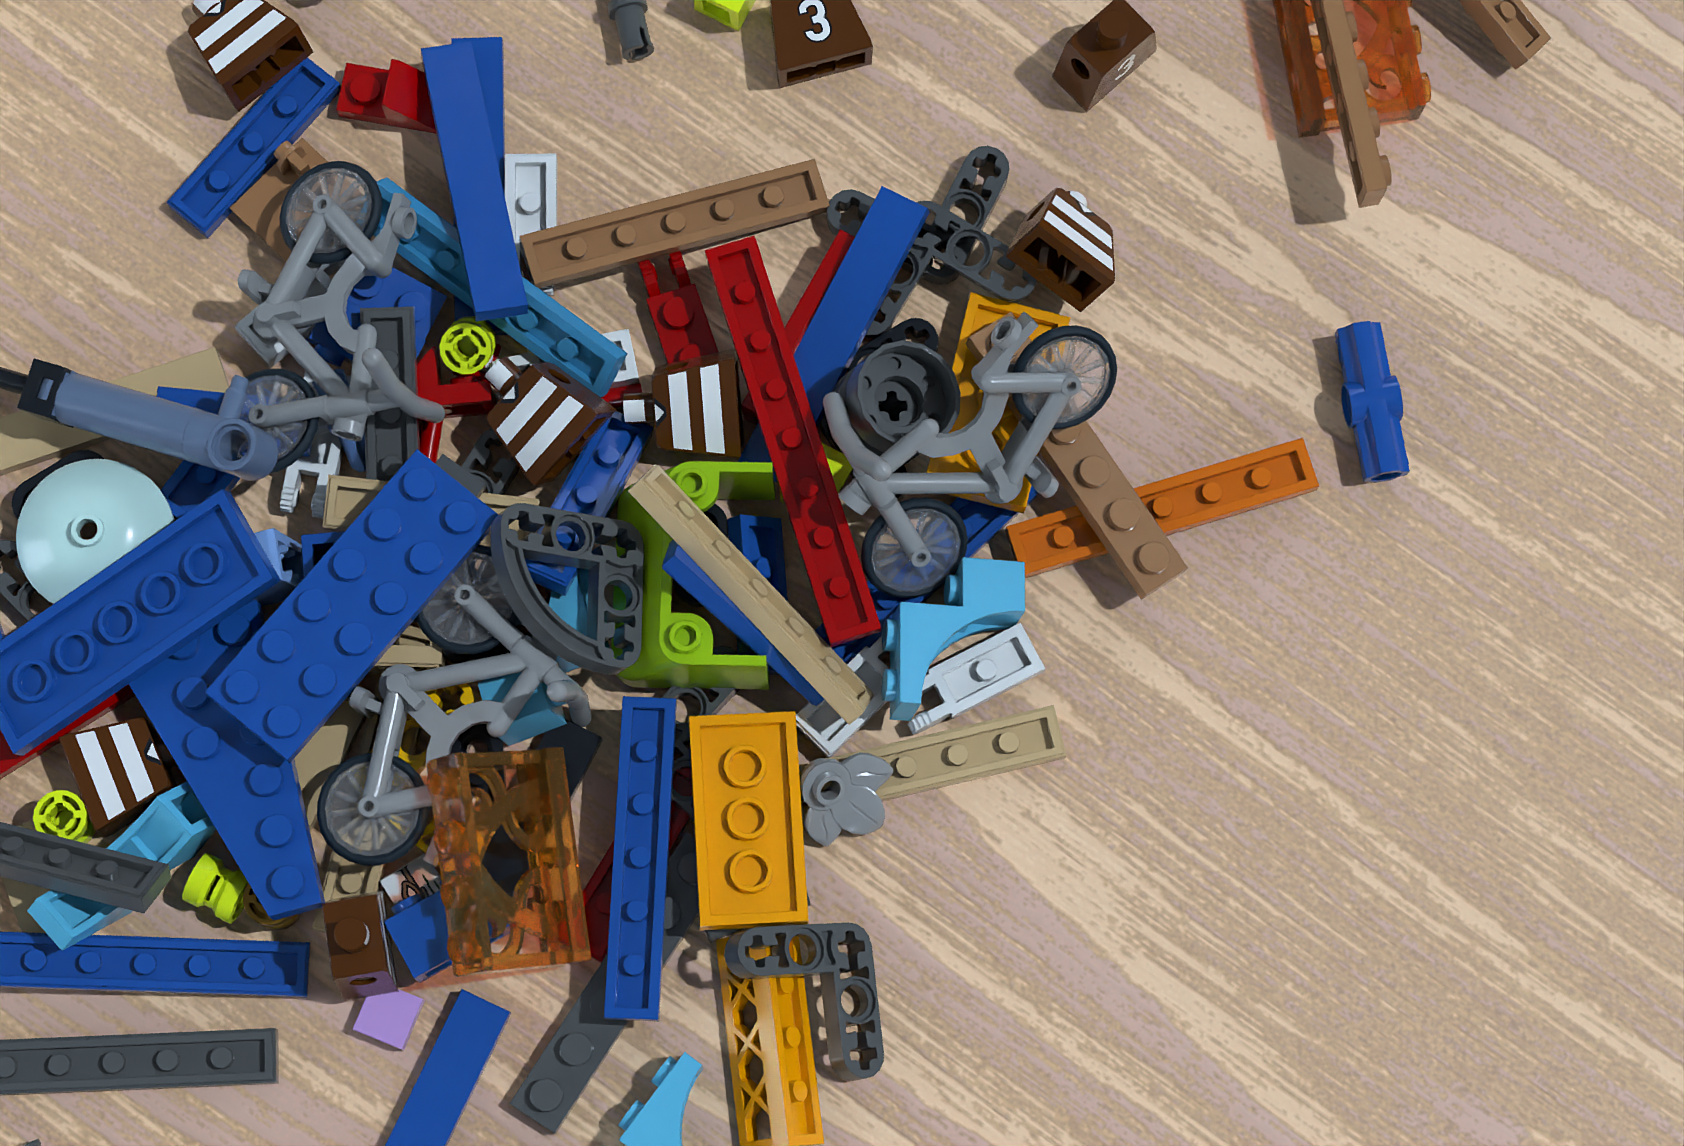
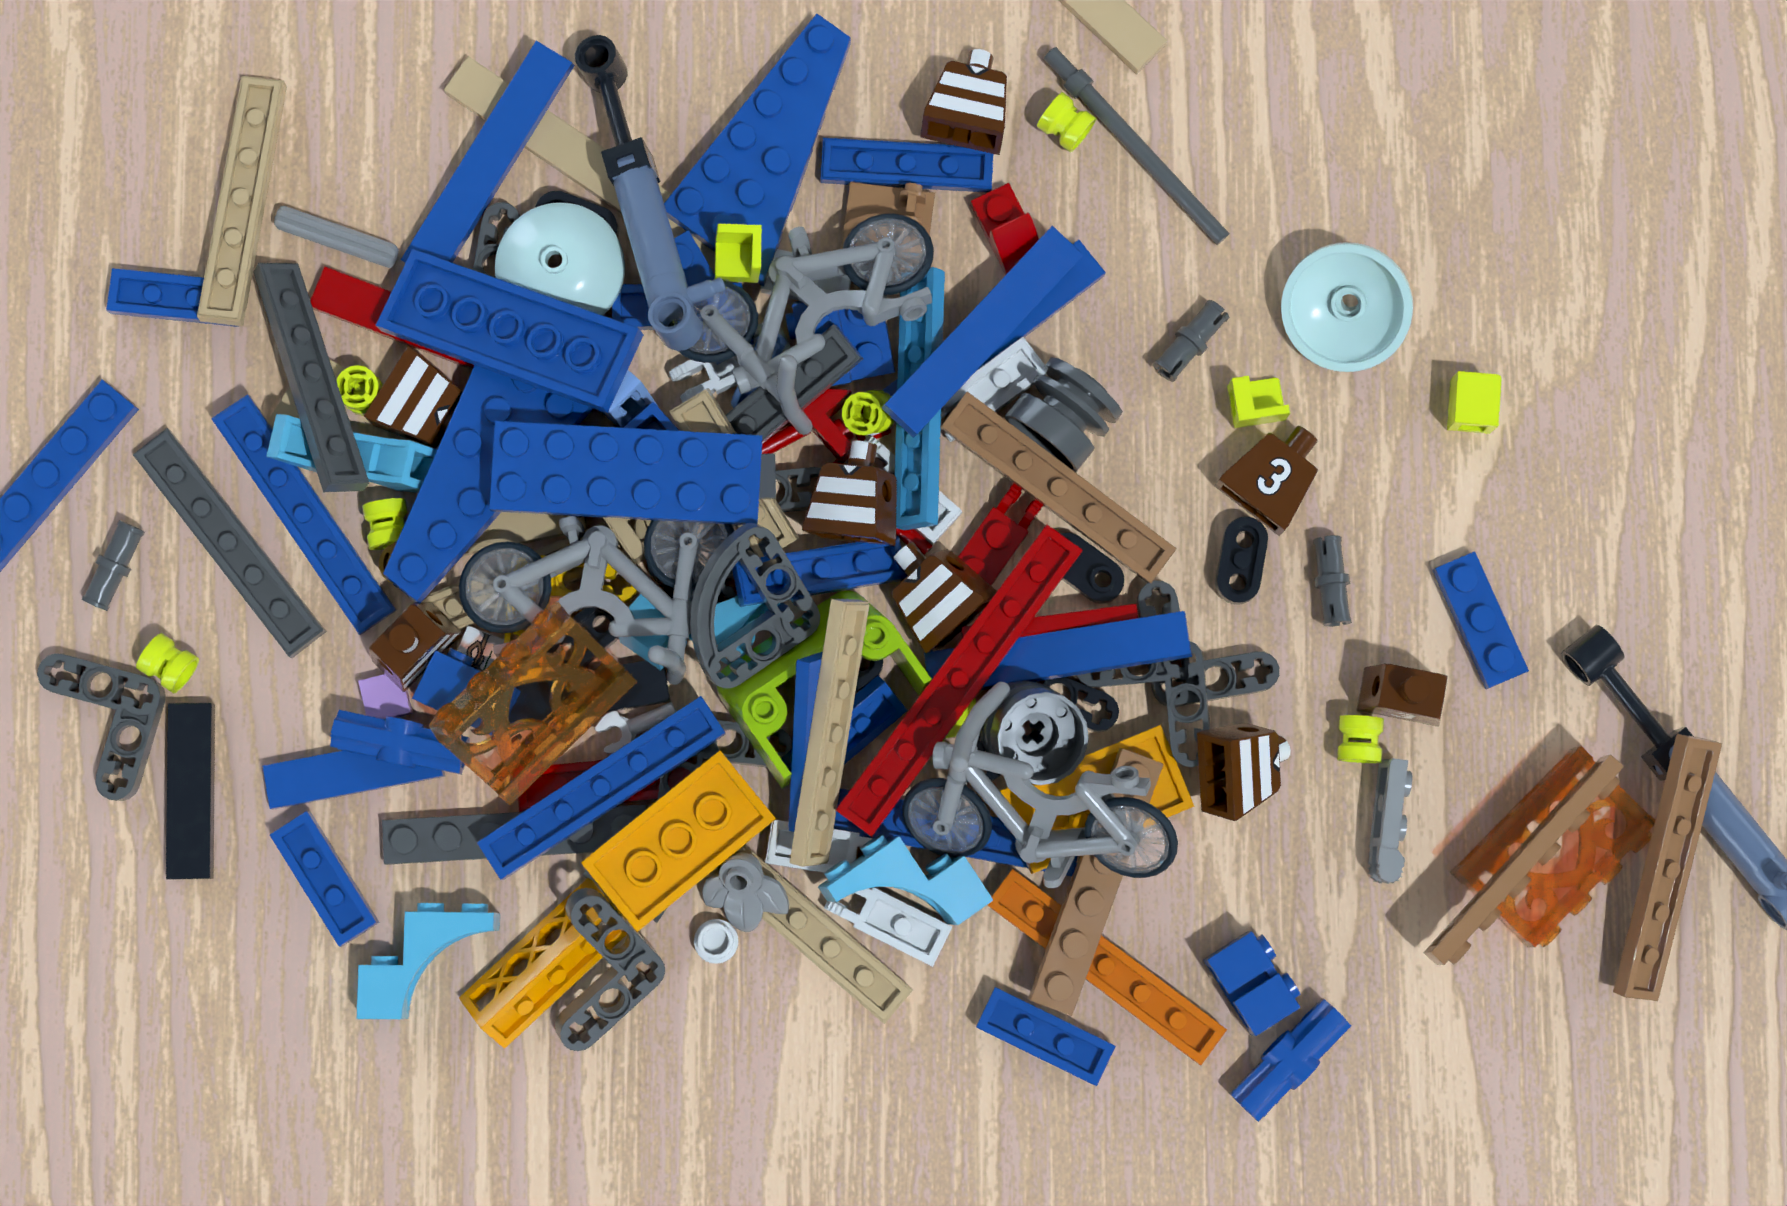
camera: 60 degrees right, 5 degrees up
(146, 288) = (764, 150): none -> blue wing
(219, 349) = (738, 252): none -> neon yellow panel
(444, 1029) = (393, 741): none -> blue piece
(601, 790) = (634, 726): none -> white bar
(608, 160) = (1069, 407): none -> dark grey wheel
(778, 264) = (1085, 568): none -> black plate
(869, 860) = (716, 941): none -> white plate
(871, 112) = (1240, 561): none -> black plate
(950, 43) = (1332, 581): none -> dark grey pin
(1117, 123) = (1360, 729): none -> neon yellow wheel
(1187, 611) = (1045, 1036): none -> blue plate
(1212, 153) = (1388, 822): none -> light grey hinge
(1275, 384) = (1252, 982): none -> blue piece

